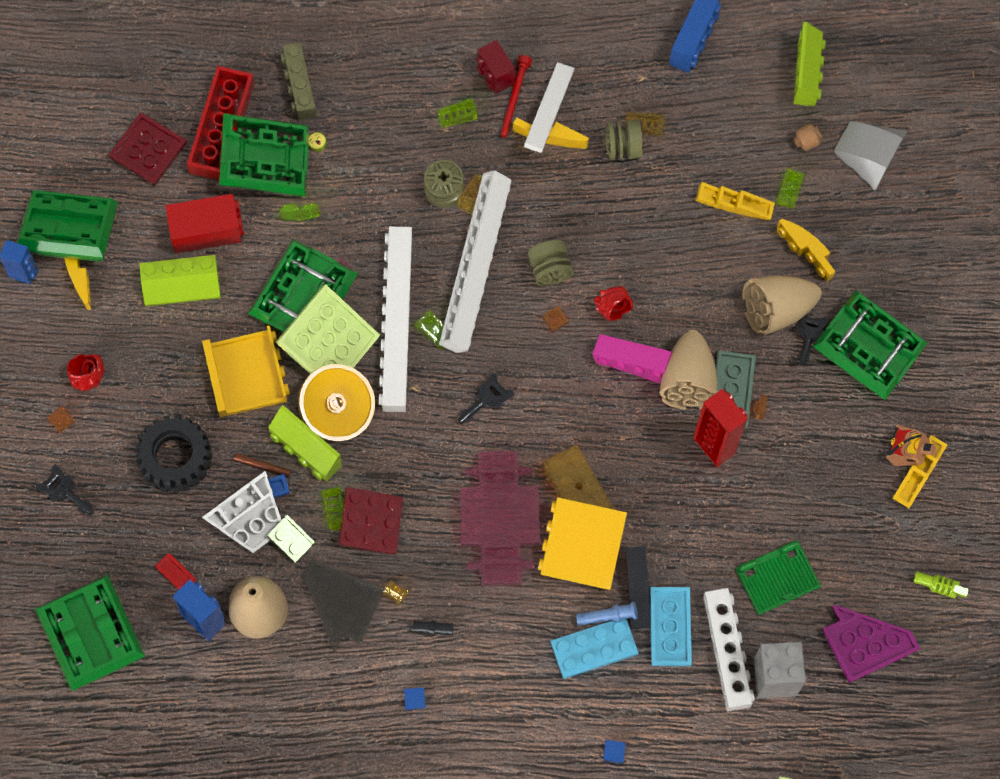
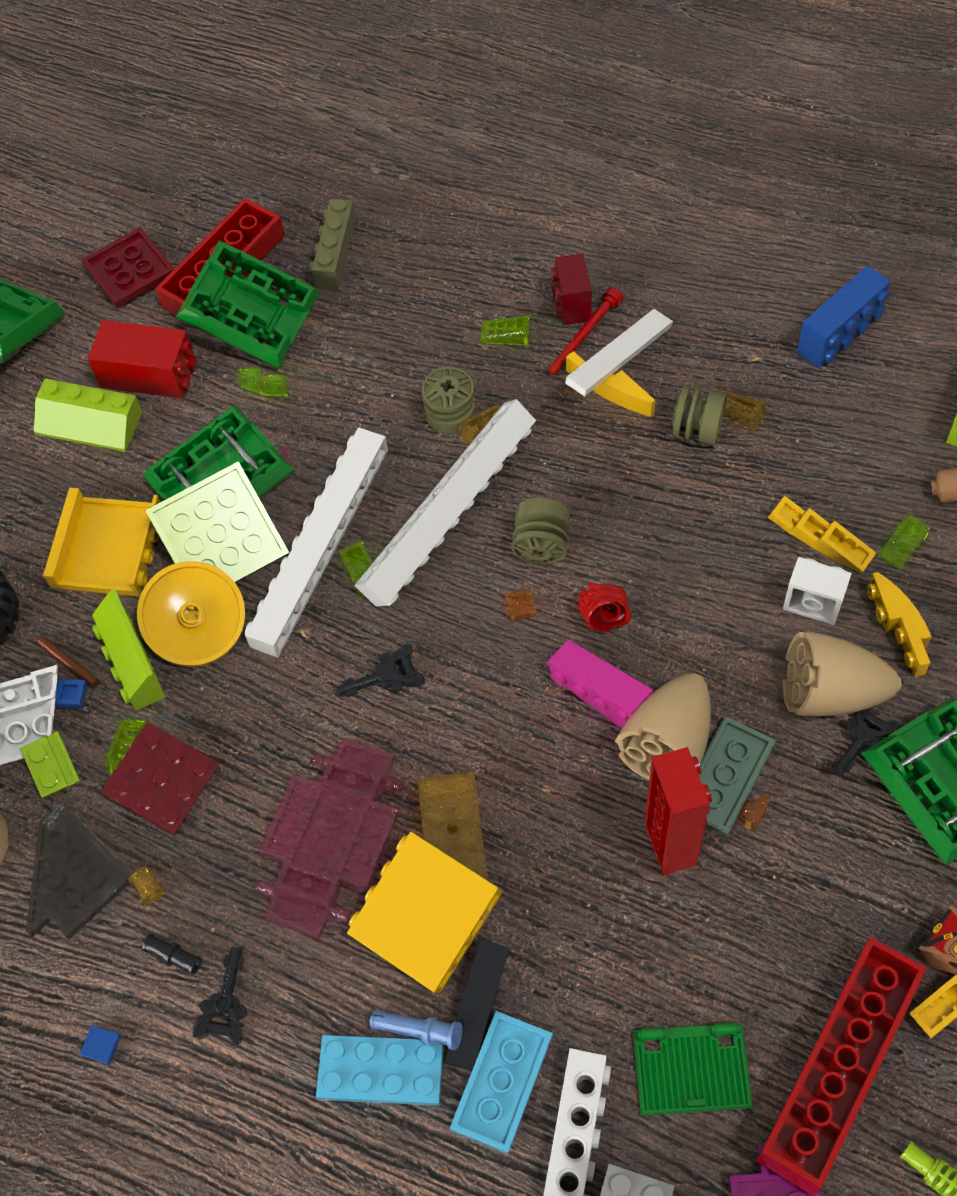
camera: 30 degrees right, 10 degrees down
(317, 142) = (324, 315): tile -> none
(480, 645) = (224, 1004): none -> black piece
(747, 245) = (816, 590): none -> white brick
(865, 541) = (841, 1067): none -> red brick

